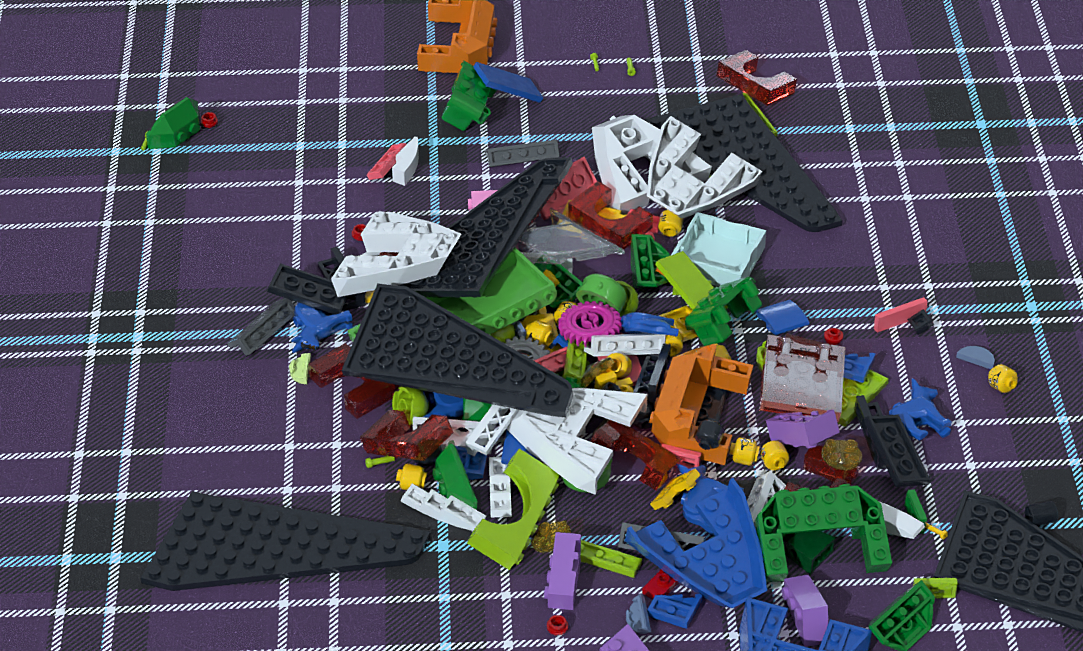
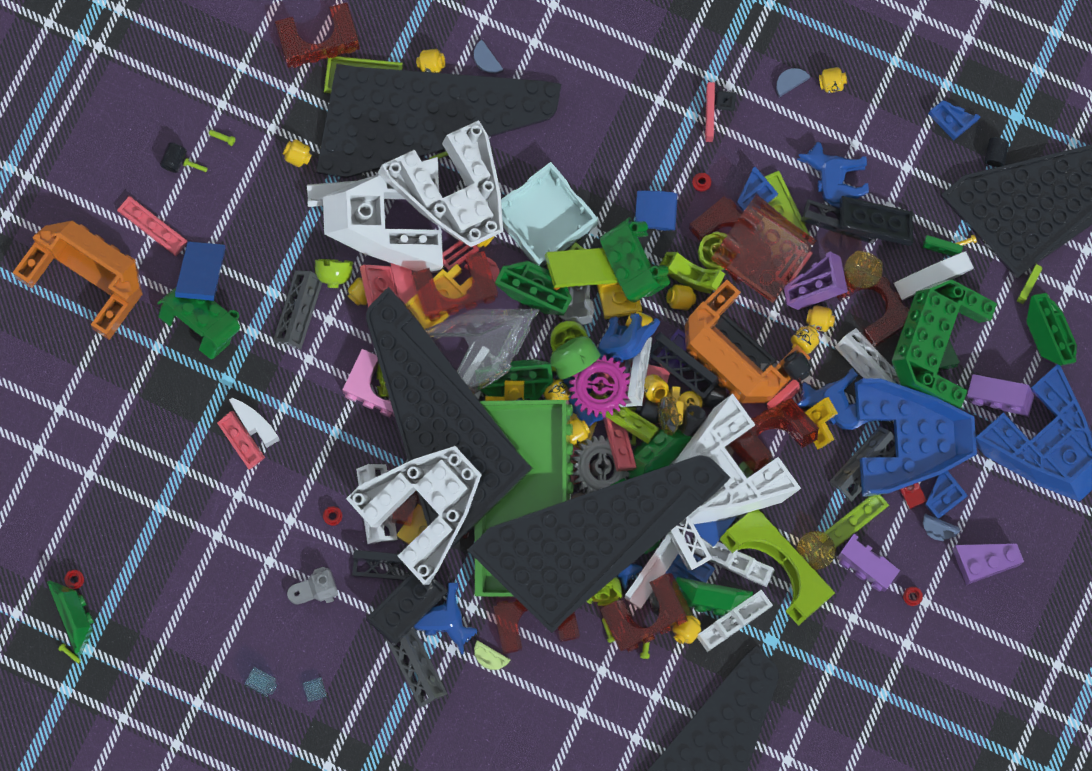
camera: 65 degrees left, 35 degrees up
(188, 242) = (261, 682): none -> clear light blue brick
(202, 278) = (314, 689): none -> clear light blue plate
(291, 244) = (318, 586): none -> light grey piece
(528, 56) = (152, 226): none -> coral tile
(566, 148) = (333, 271): none -> lime cylinder
(590, 45) = (173, 157): none -> black piece
(650, 103) = (297, 153): none -> yellow head
(656, 299) = (581, 306): none -> light grey piece
(743, 347) = (690, 274): none -> lime arch
(793, 143) = (431, 61): none -> yellow head
(823, 174) = (485, 60): none -> sand blue tile
(1044, 474) = (952, 119): none -> blue wing

